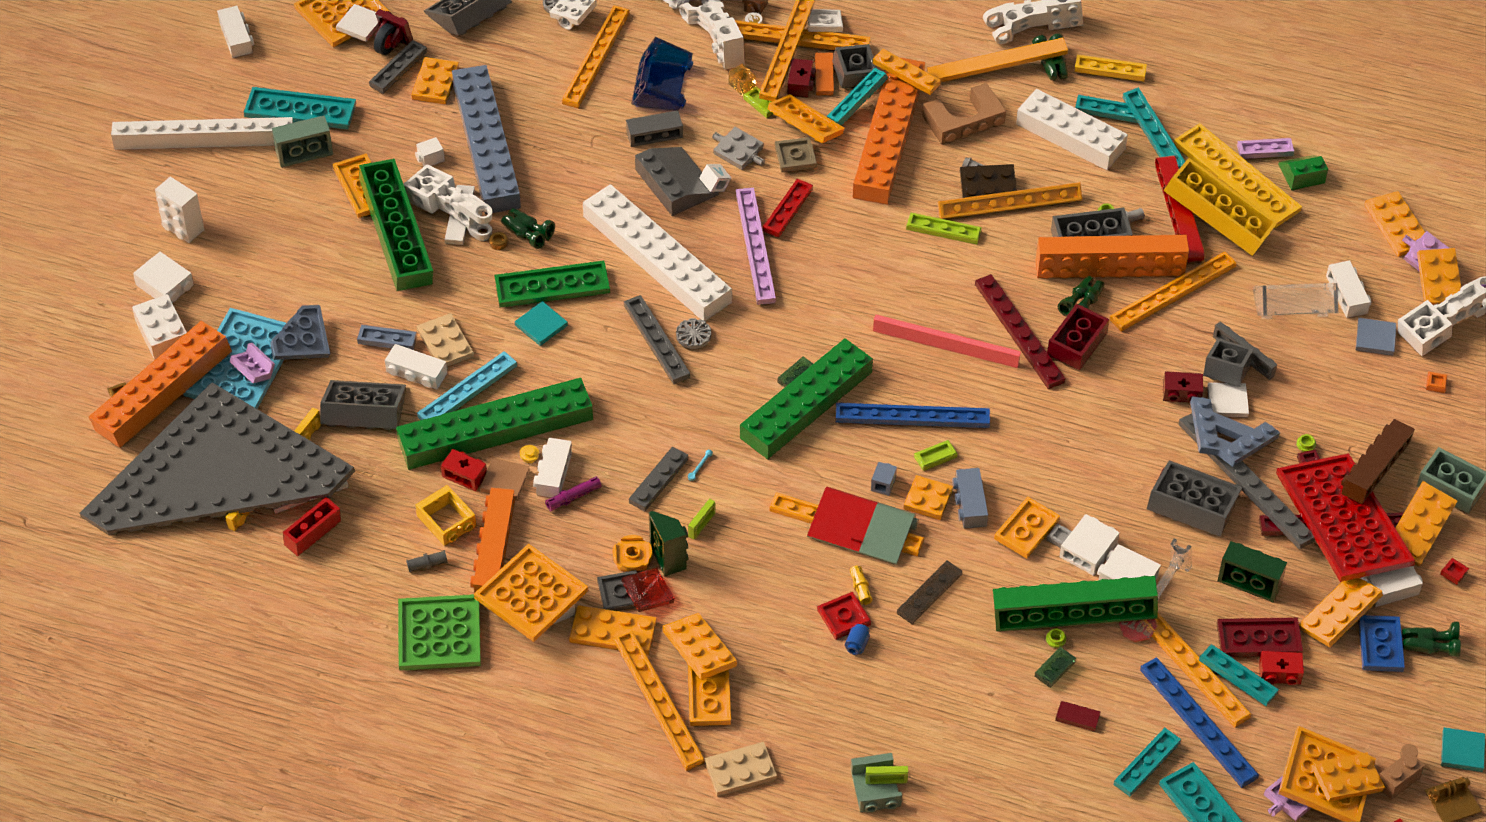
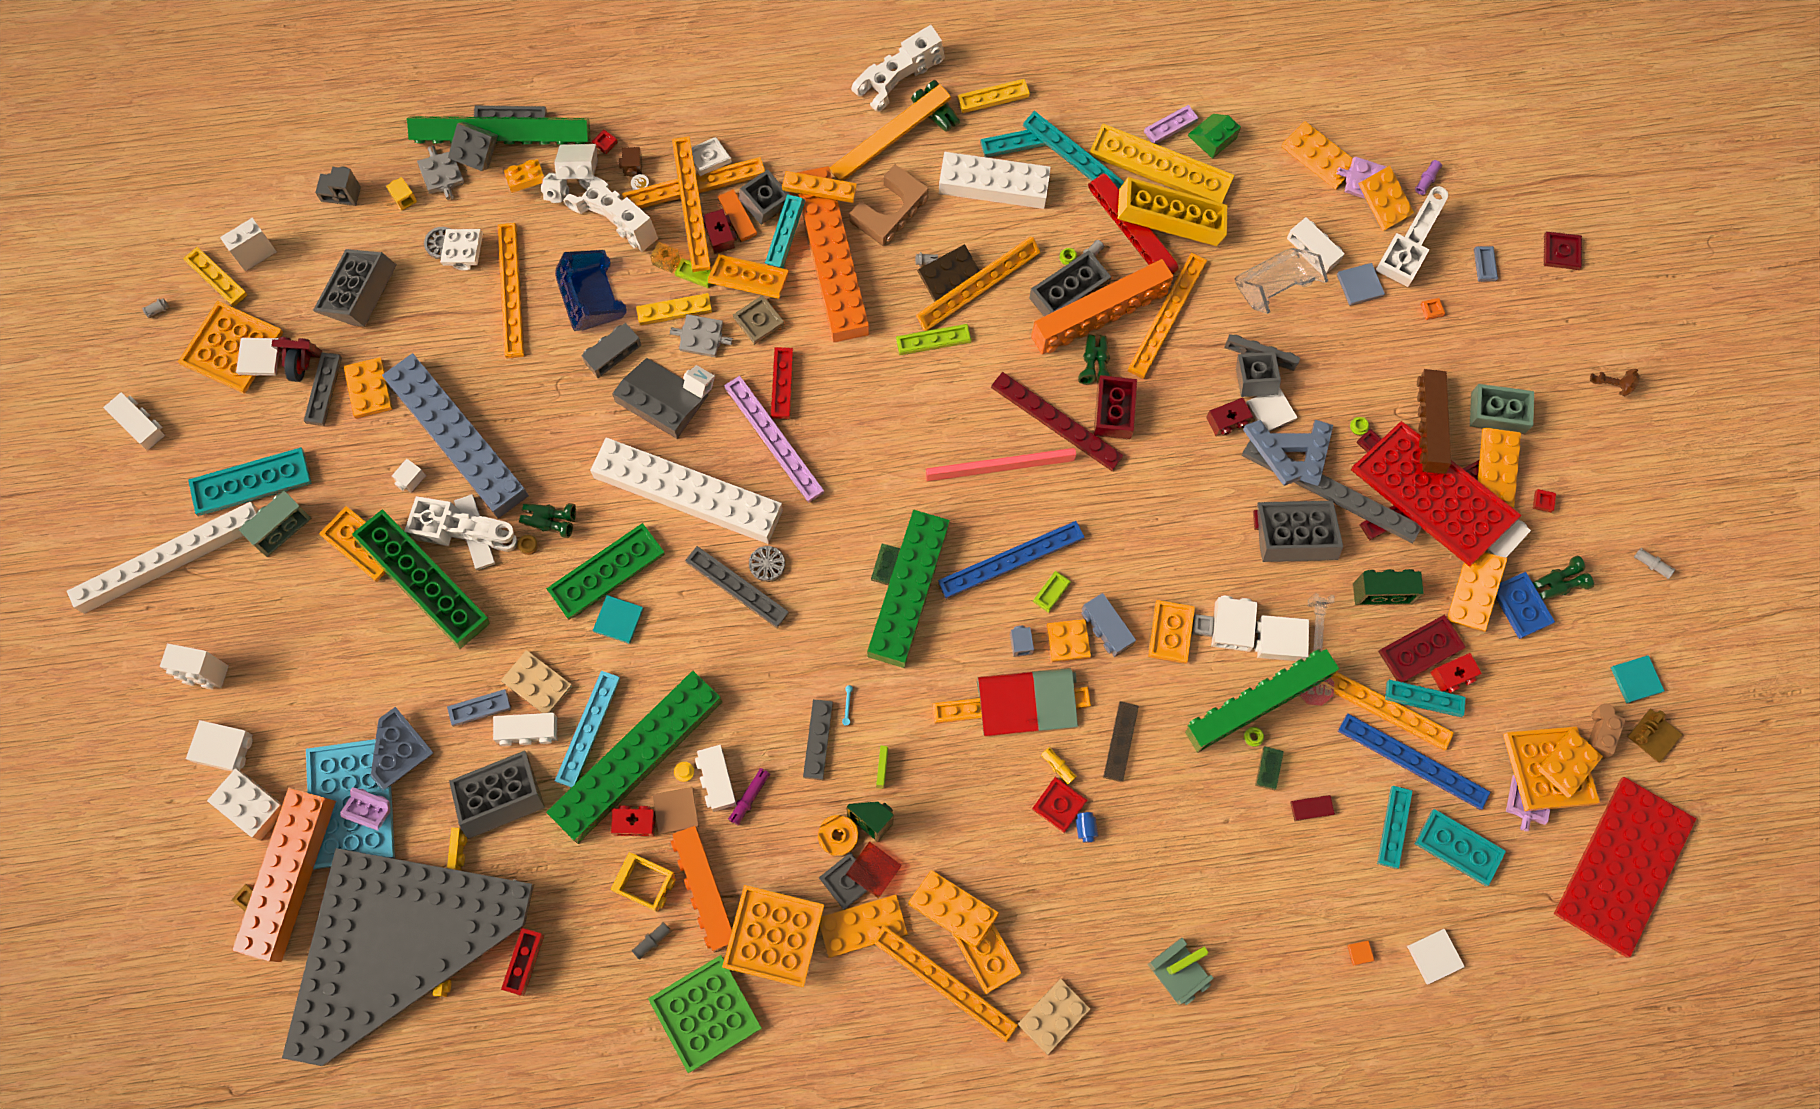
camera: 30 degrees left, 20 degrees up
(726, 120) = (673, 309): none -> yellow plate

